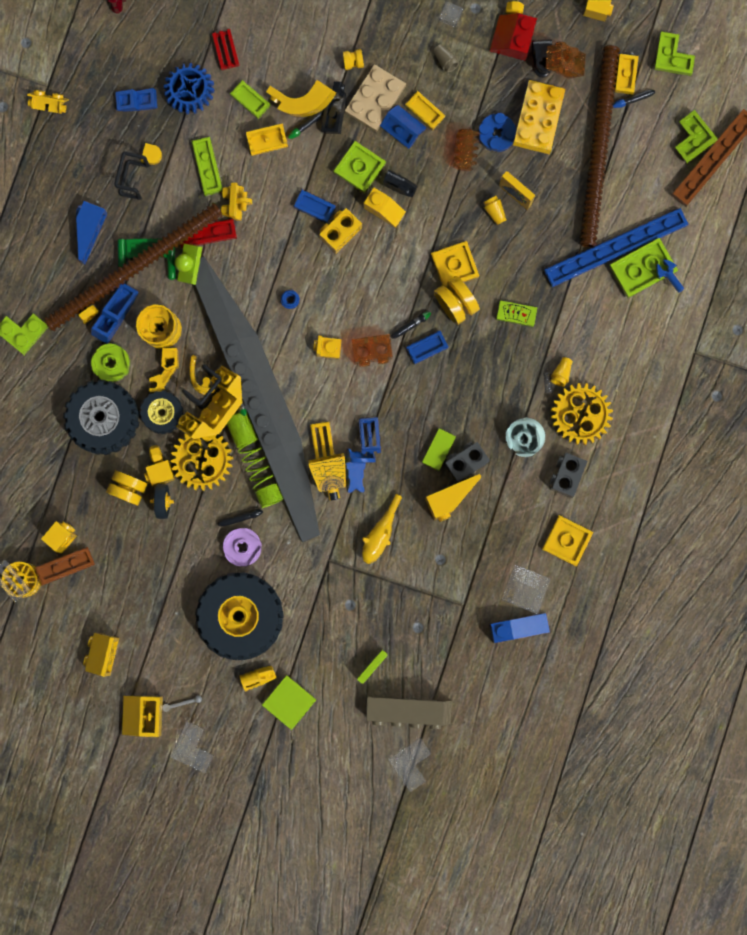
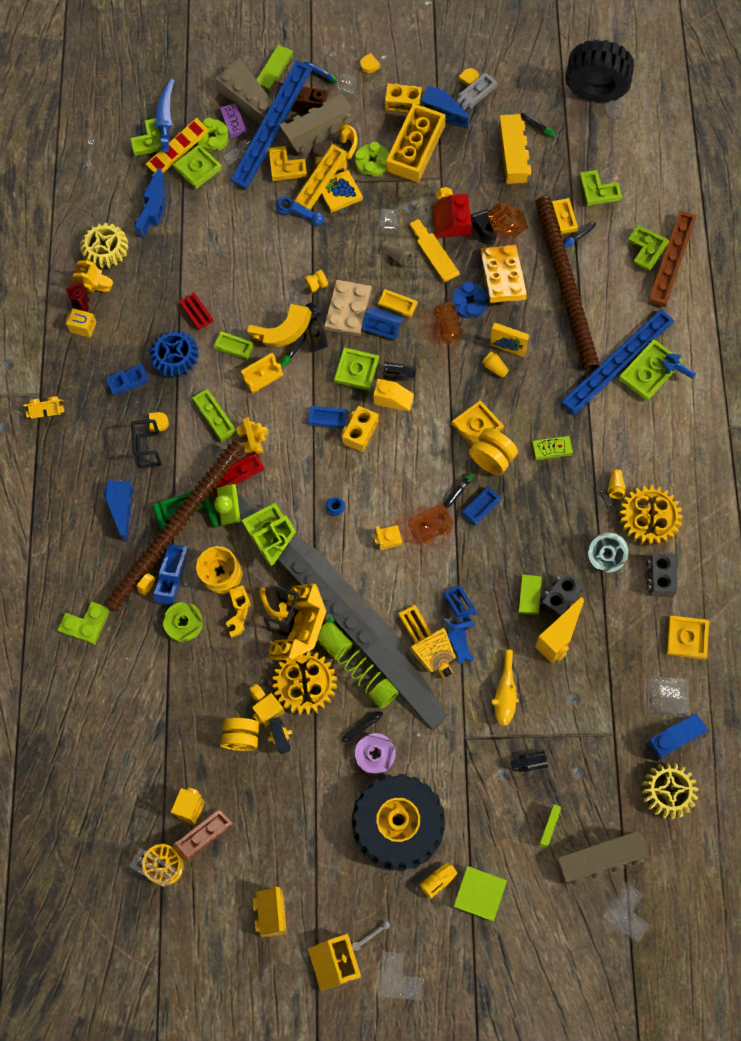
camera: 15 degrees left, 15 degrees down
(87, 406) = (194, 692): black wheel -> none
(109, 24) = (81, 322): none -> yellow brick
(160, 401) = (240, 645): black wheel -> none
(218, 306) = (269, 531): none -> lime slope
(378, 603) = (530, 761): none -> black hinge
(482, 67) = (434, 252): none -> yellow piece
(507, 678) = (669, 782): none -> light yellow gear

